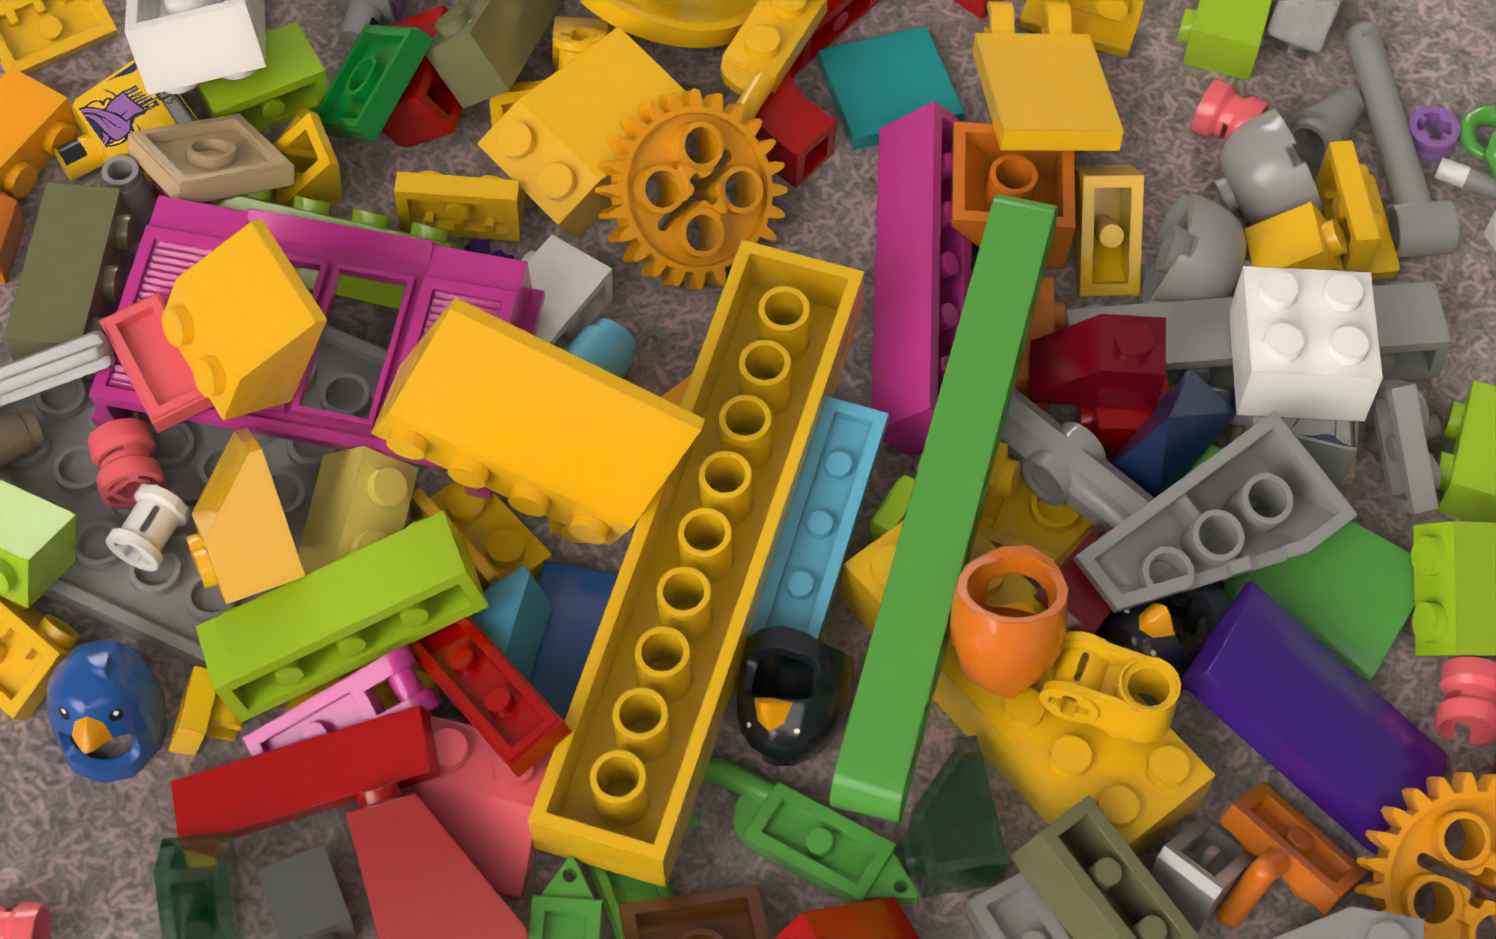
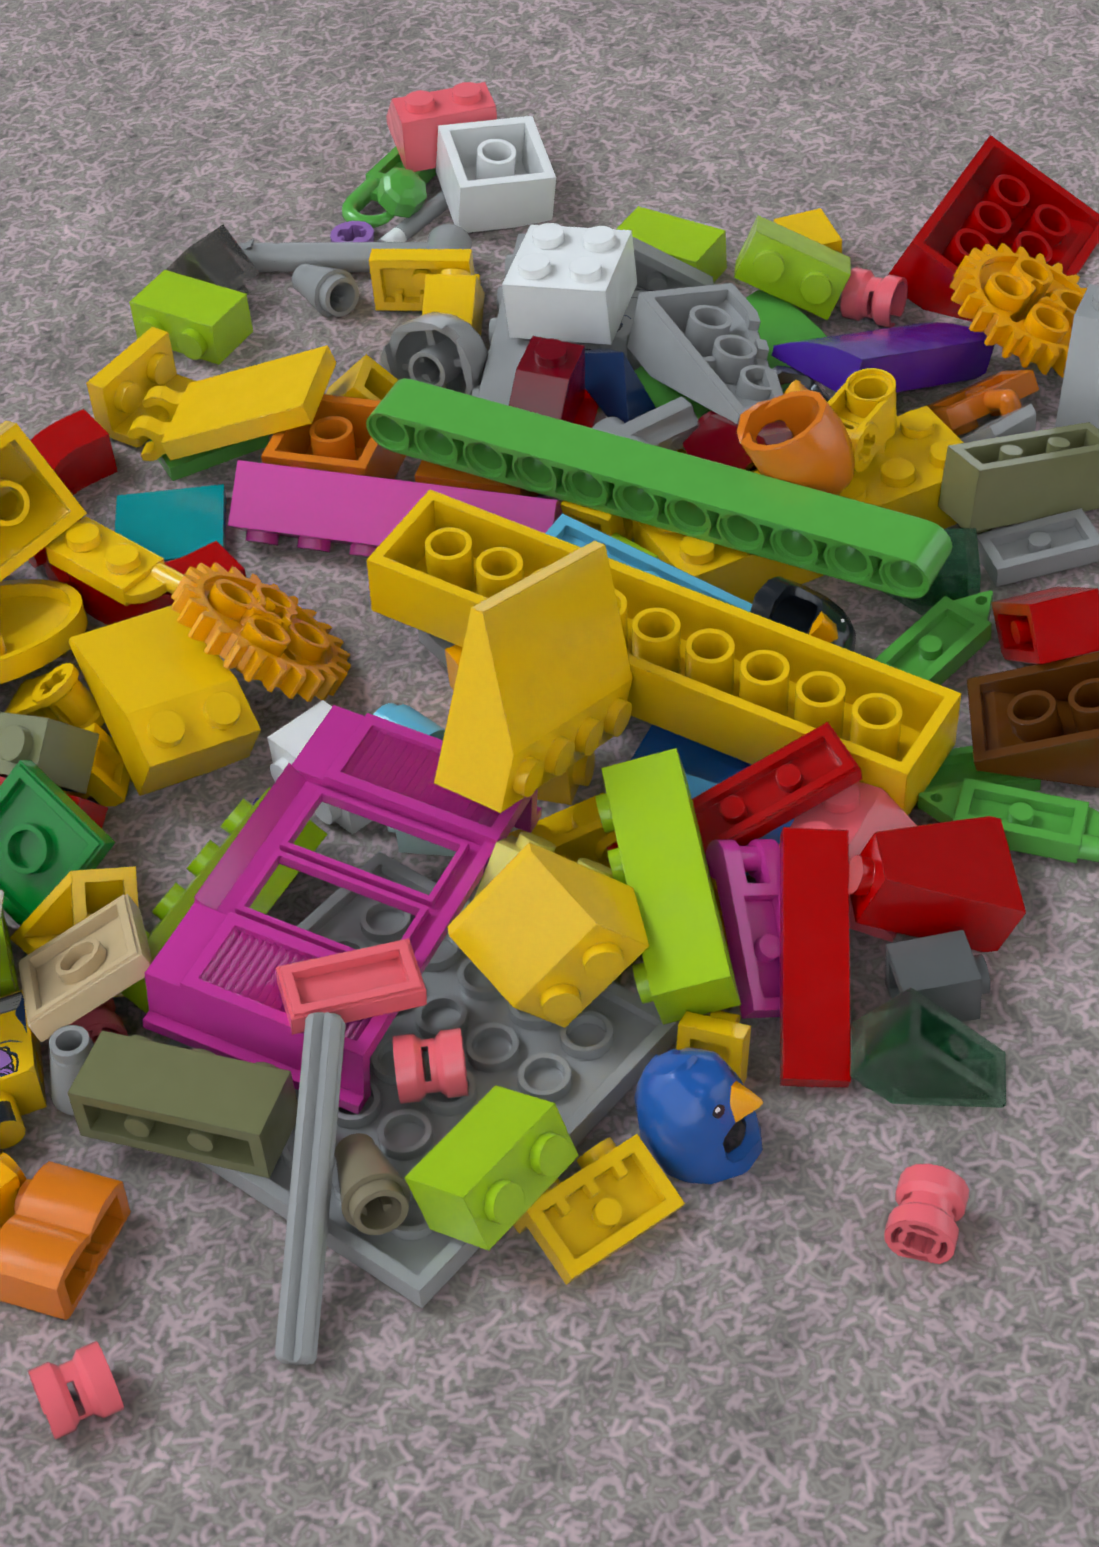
camera: 70 degrees left, 15 degrees down
(148, 527) = (510, 1053): white bush -> none
(244, 323) = (358, 870): yellow slope -> none
(462, 204) = (194, 810): yellow bracket -> none
(1224, 110) = (300, 331): coral wheel -> none
(1264, 170) = (366, 306): light grey cylinder -> none

